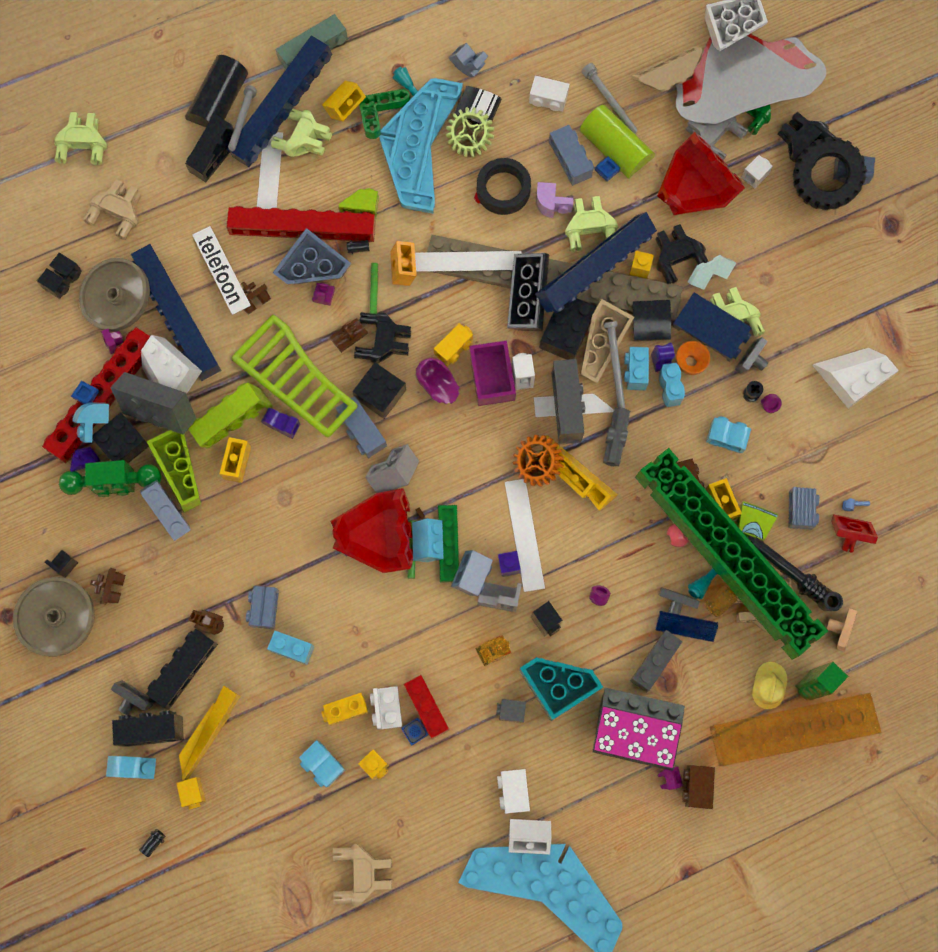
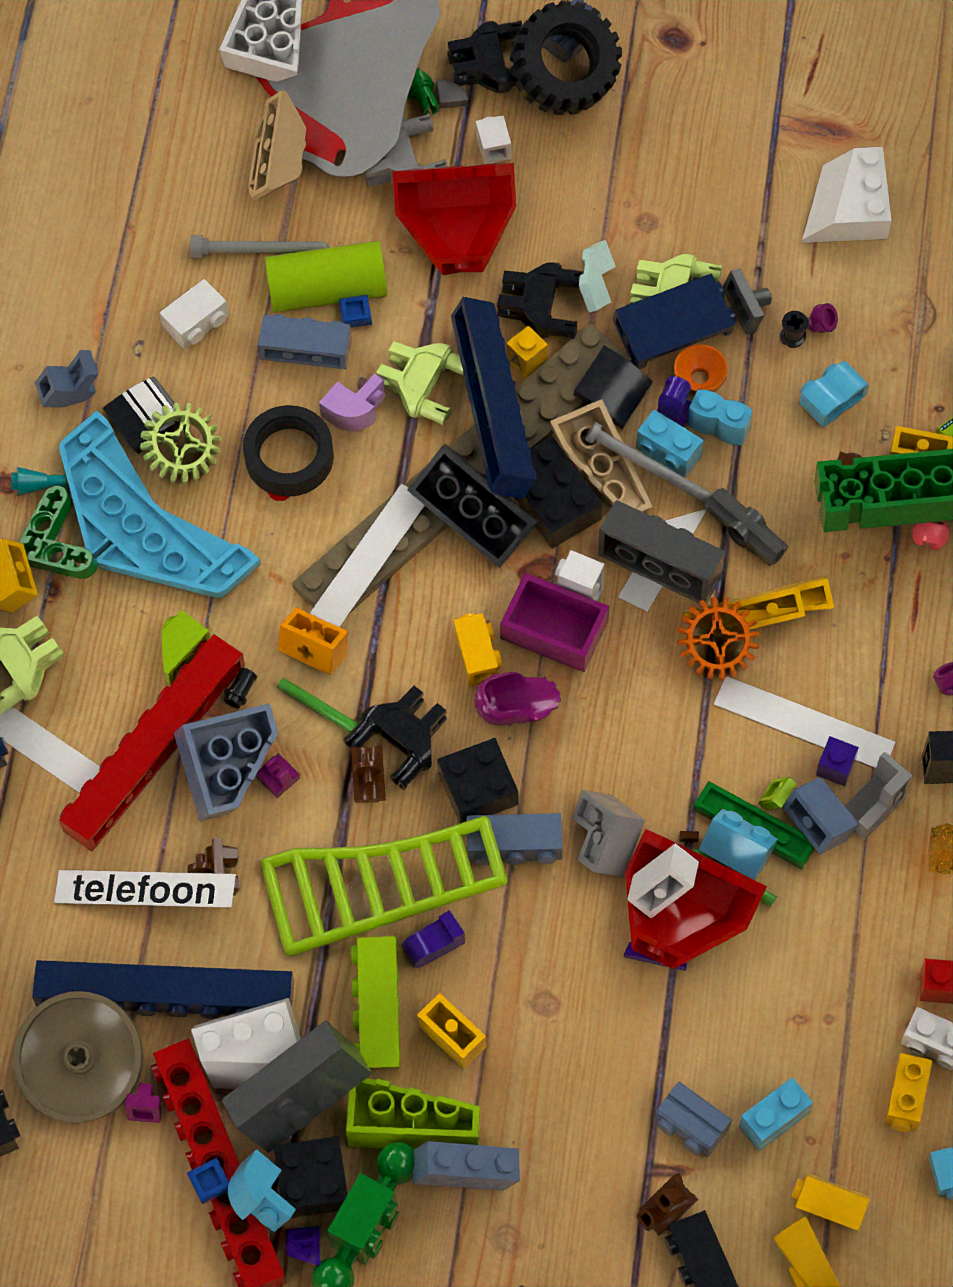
camera: 55 degrees left, 10 degrees down
(259, 703) = (830, 1201): none -> yellow brick
(376, 513) = (663, 880): none -> white brick
(471, 543) = (777, 793): none -> lime tile
(769, 134) = (450, 94): none -> flat silver tile

